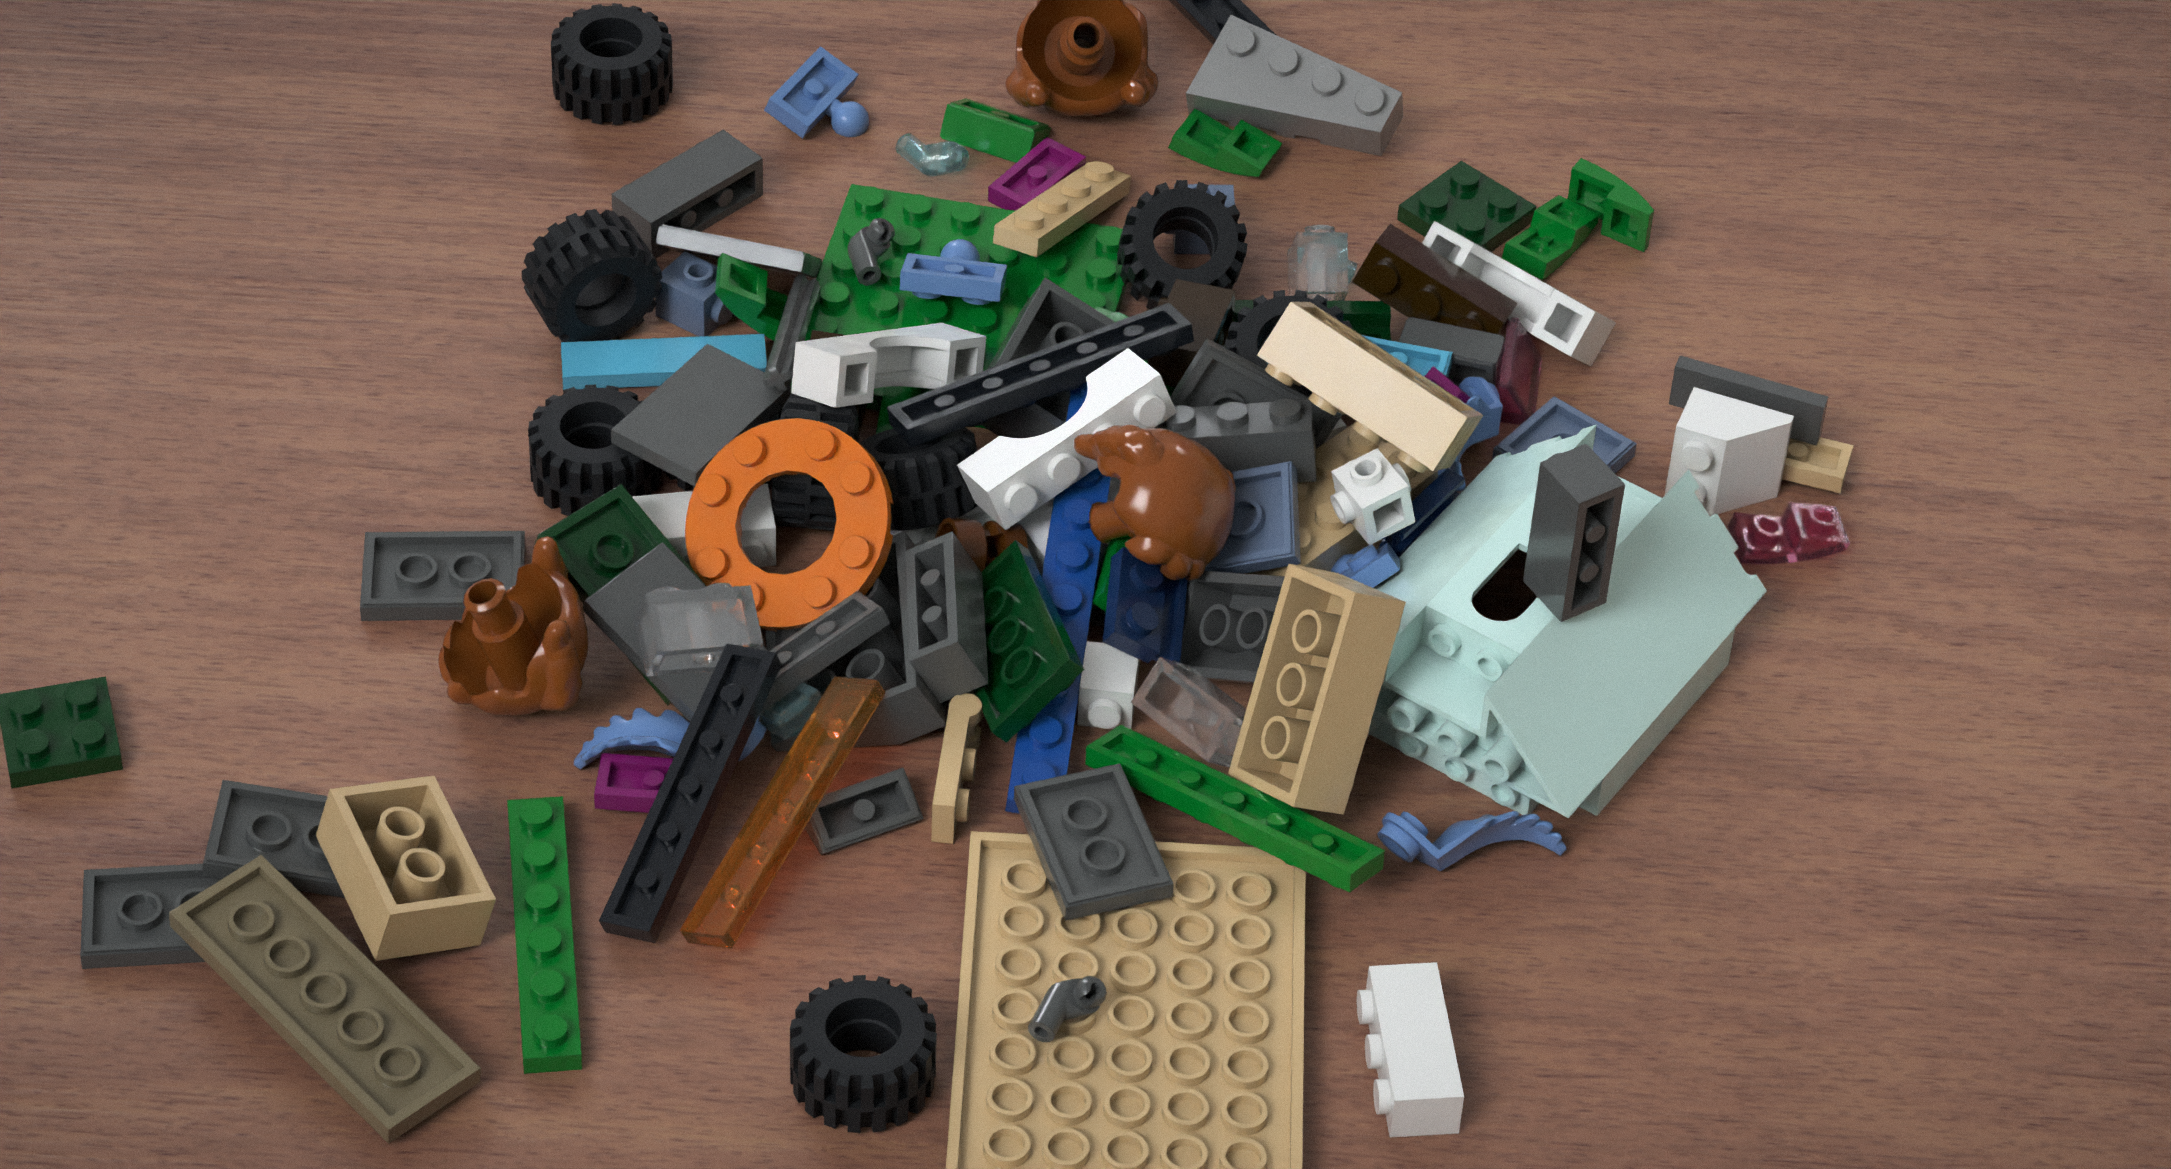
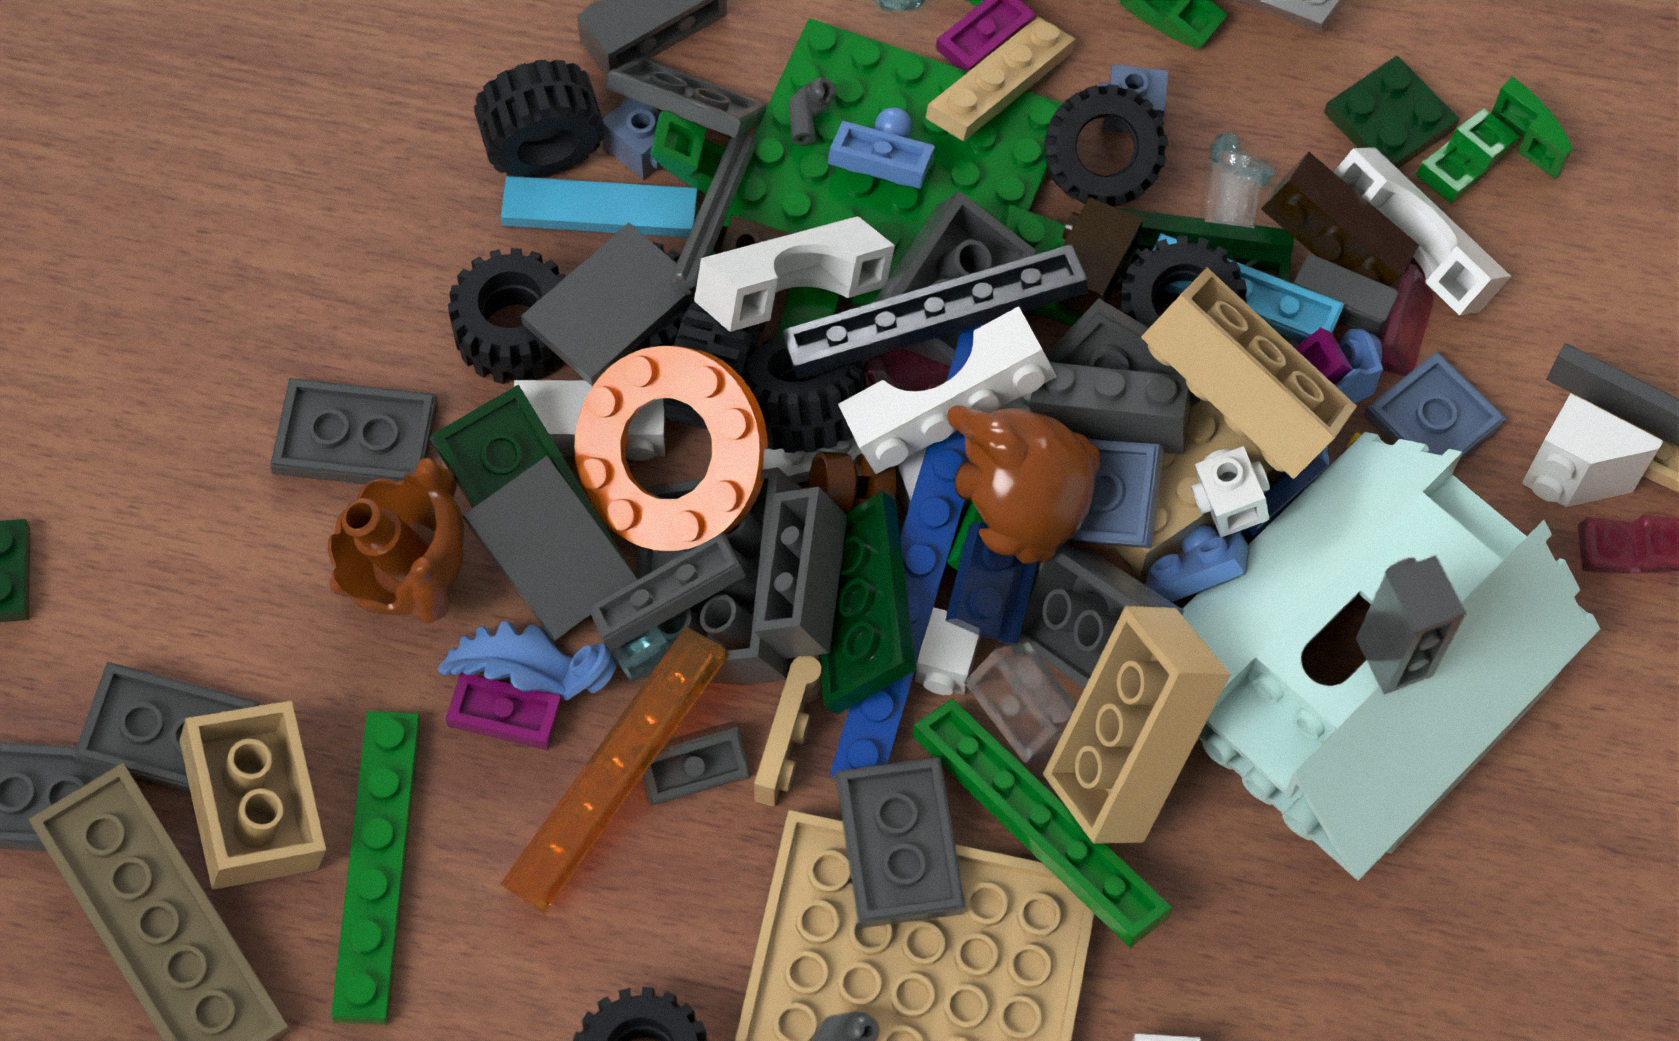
camera: 10 degrees right, 20 degrees up
(690, 793) = (530, 740): black plate -> none
(691, 627) = (565, 558): clear brick -> none
(1407, 836) = (1256, 872): medium blue plant -> none

